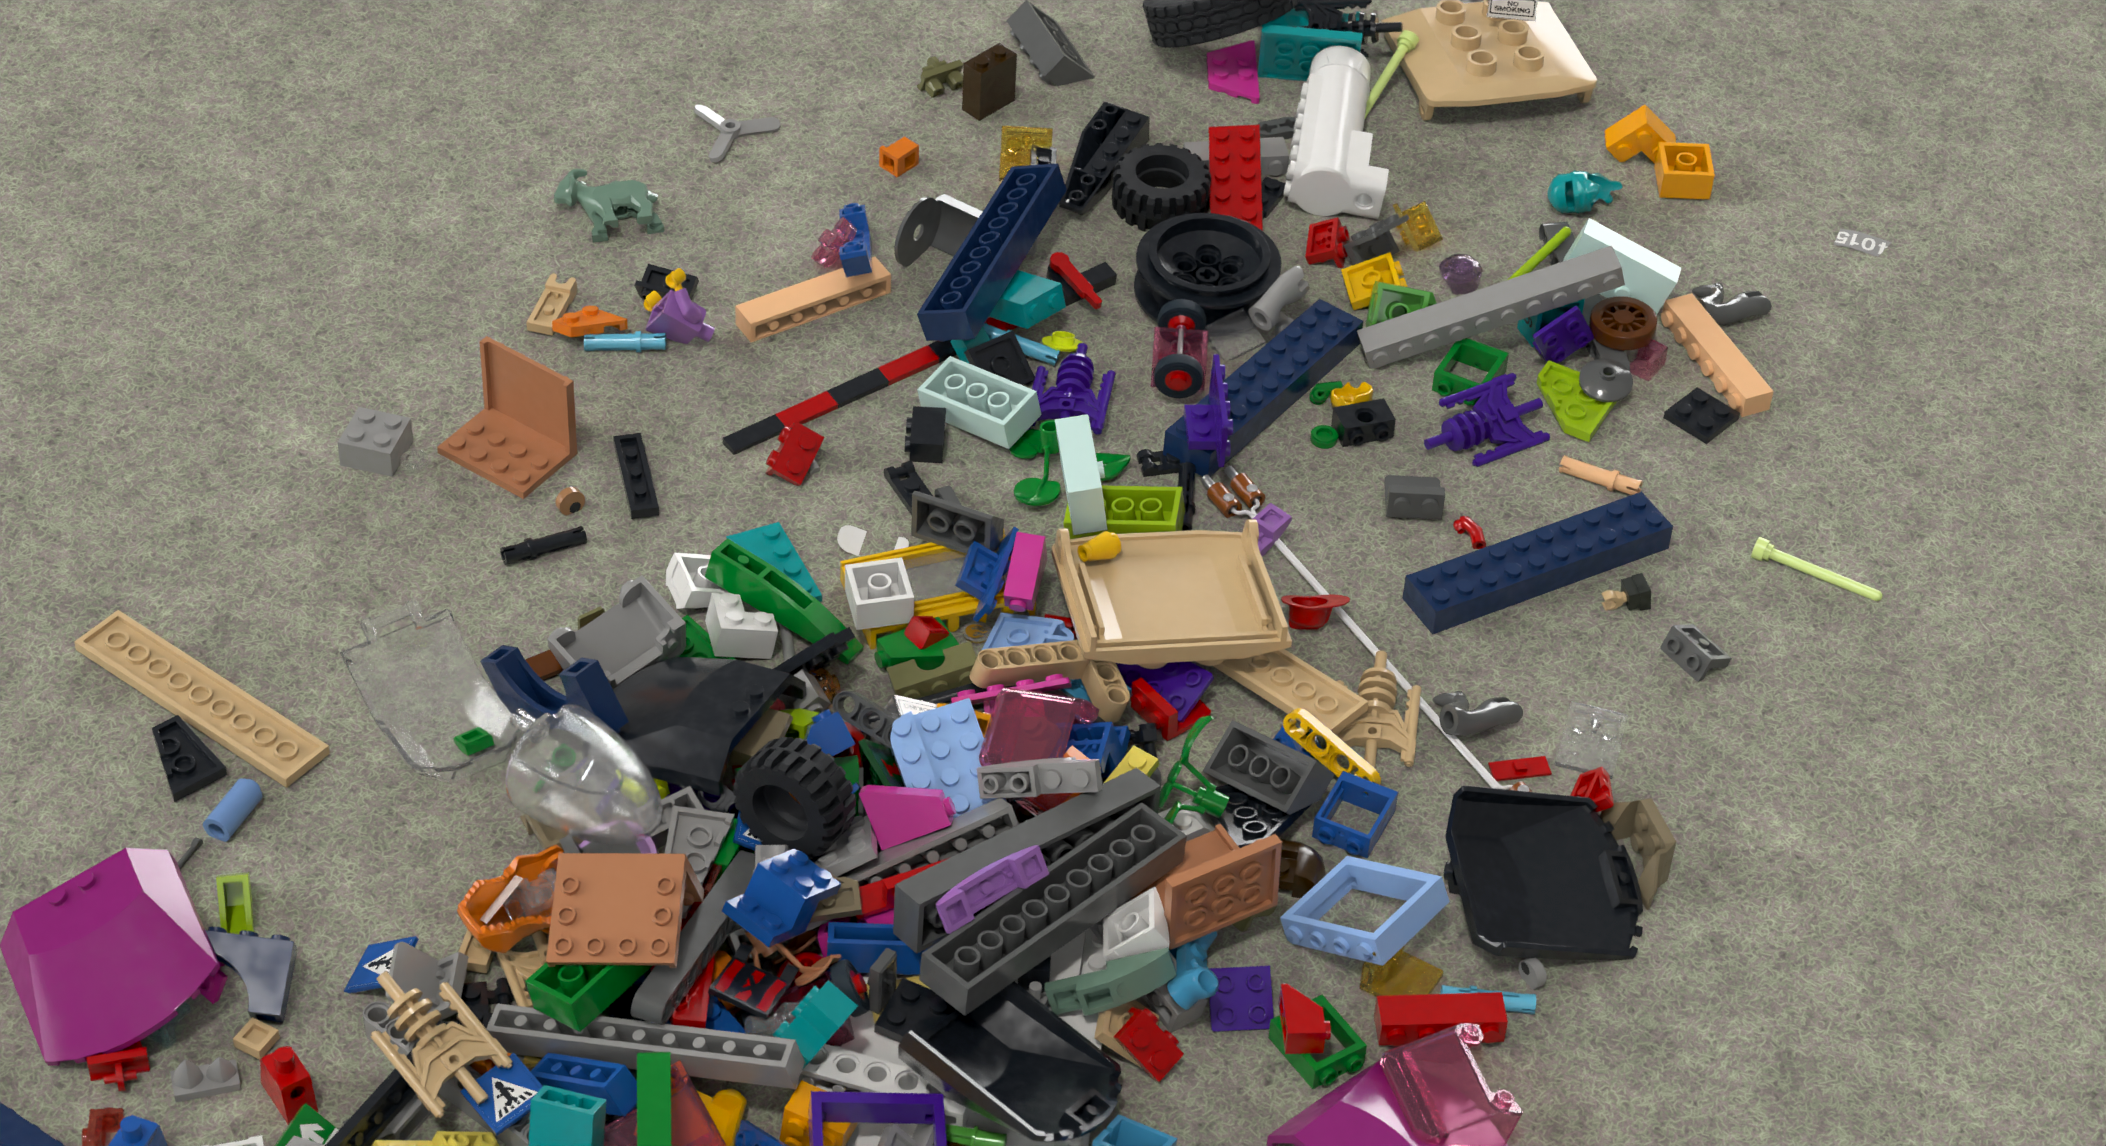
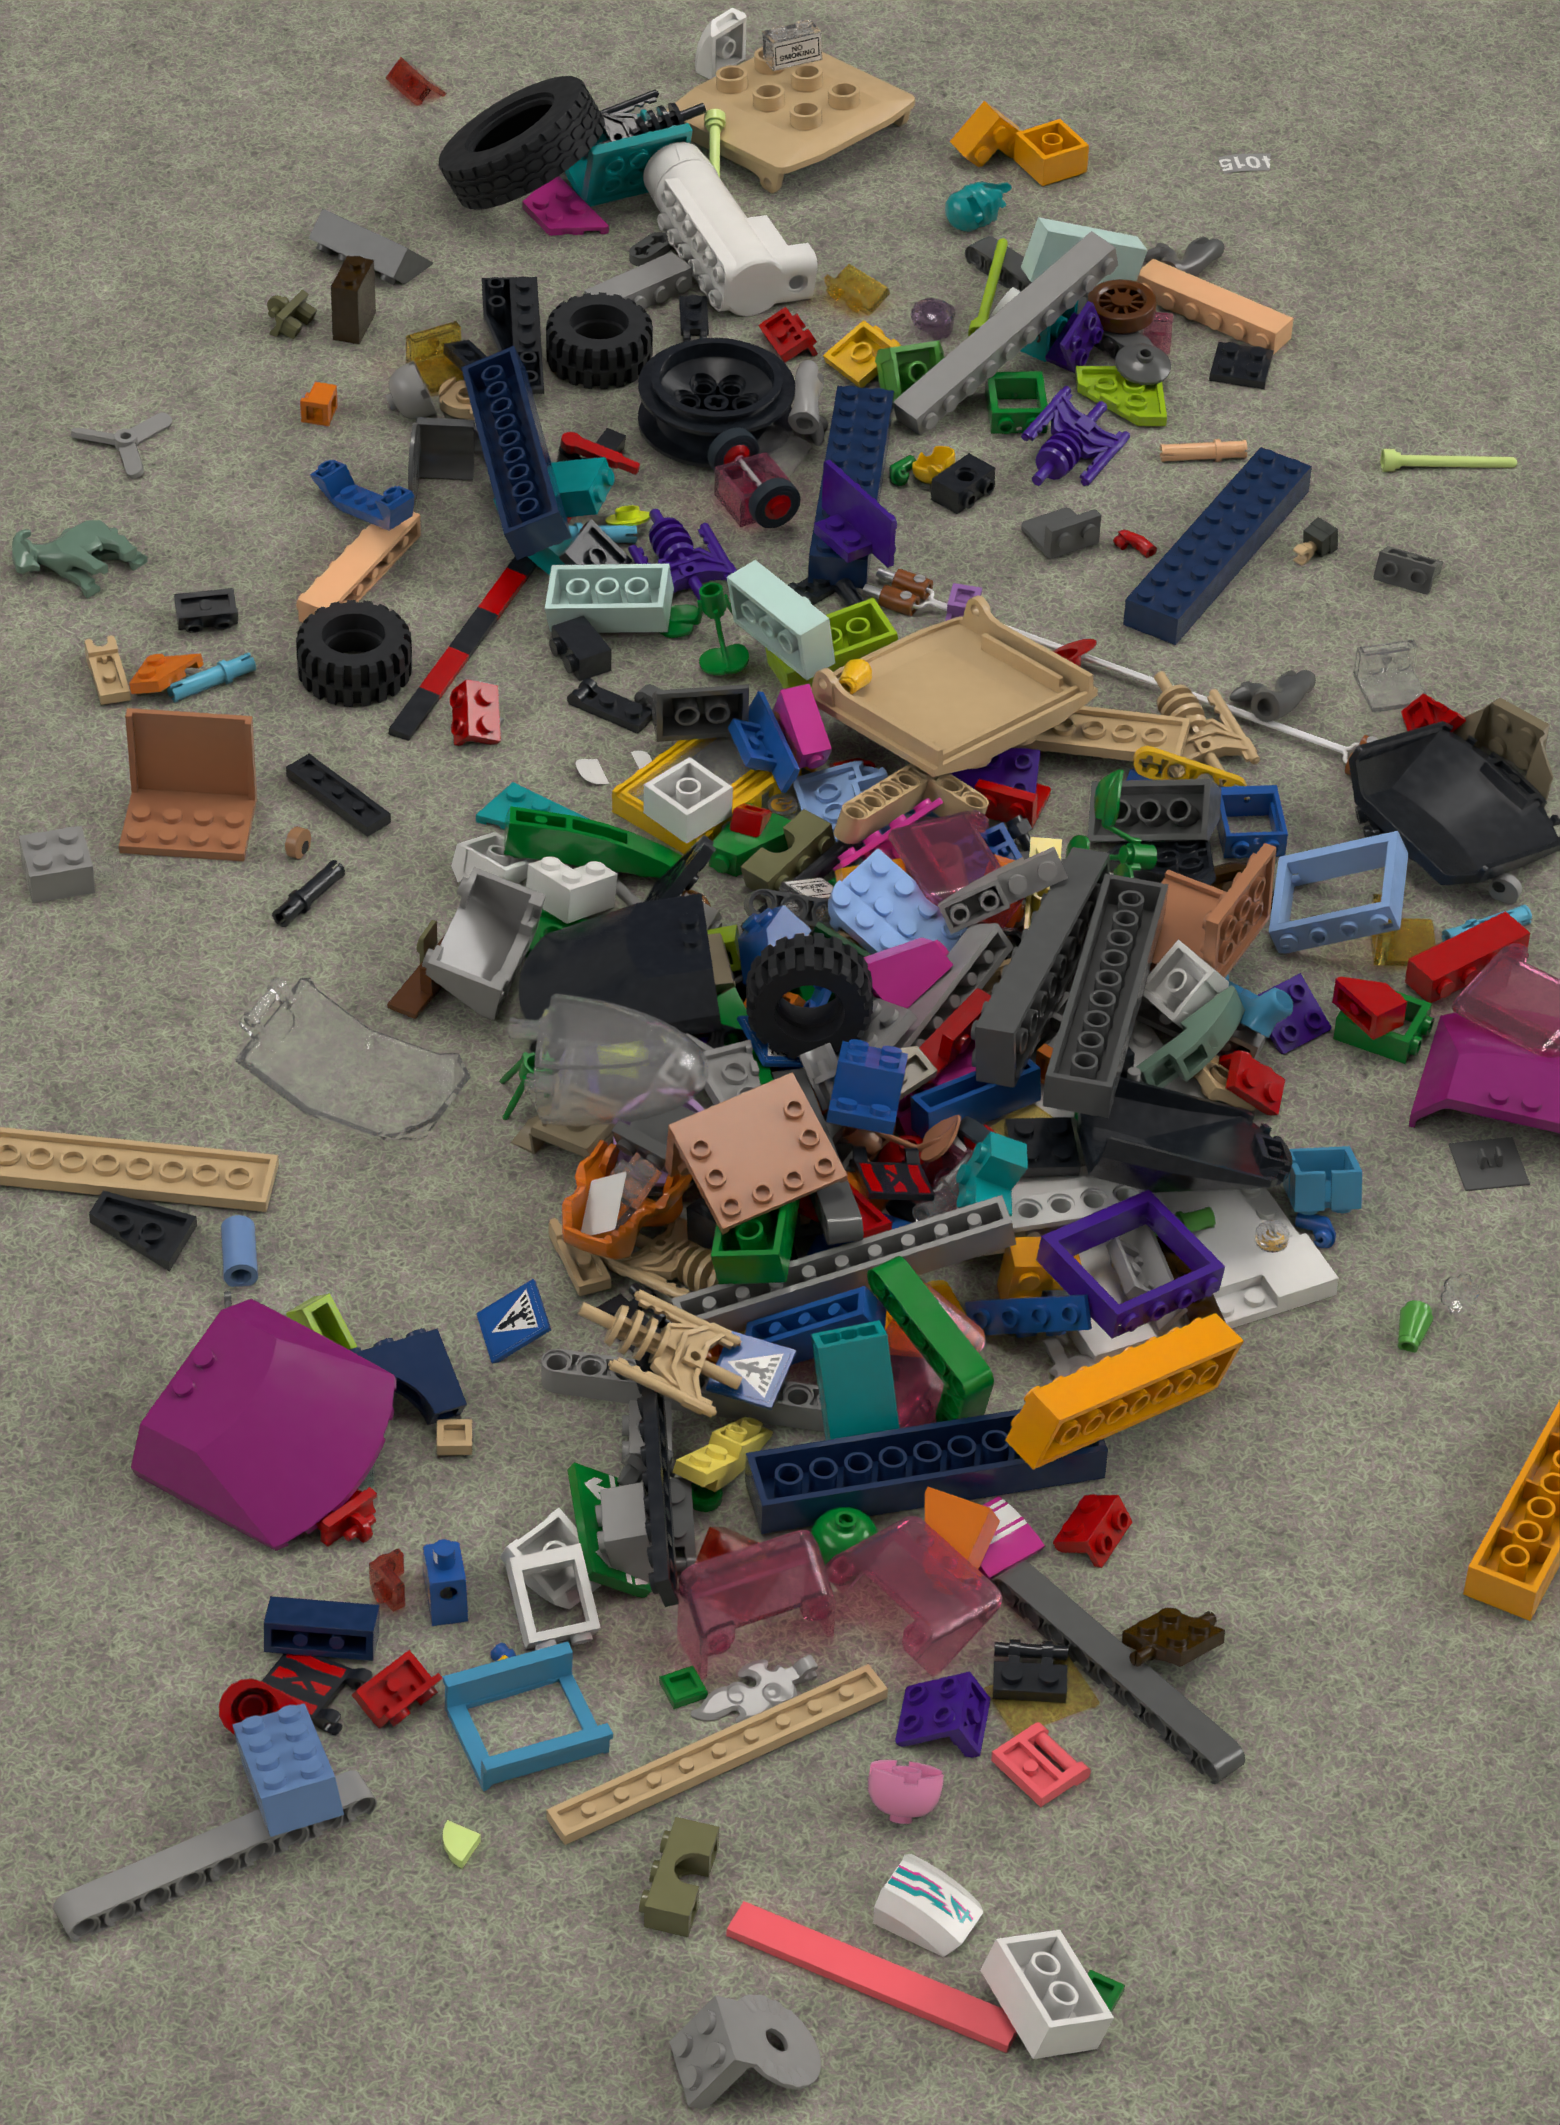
camera: 30 degrees left, 0 degrees up
(205, 1080) = (438, 1494): light grey tile -> none
(282, 1074) = (530, 1458): red torso -> none
(418, 970) = (562, 1312): light grey bracket -> none
(474, 741) = (409, 1093): green tile -> none
(523, 688) = (458, 1029): dark blue arch -> none
(676, 312) = (251, 629): medium lavender torso -> none
(748, 387) = (354, 677): none -> black tyre
(832, 240) = (338, 505): clear pink plate -> none
(882, 980) = (1001, 1115): dark grey plate -> none
(973, 171) = (409, 393): none -> light grey cylinder
(990, 884) = (1052, 988): medium lavender slope -> none
(1236, 172) = (655, 287): red plate -> none
(1324, 437) = (934, 511): green tile -> none
(1374, 240) = (835, 318): dark grey bracket -> none
(1519, 768) = (1346, 726): red piece -> none

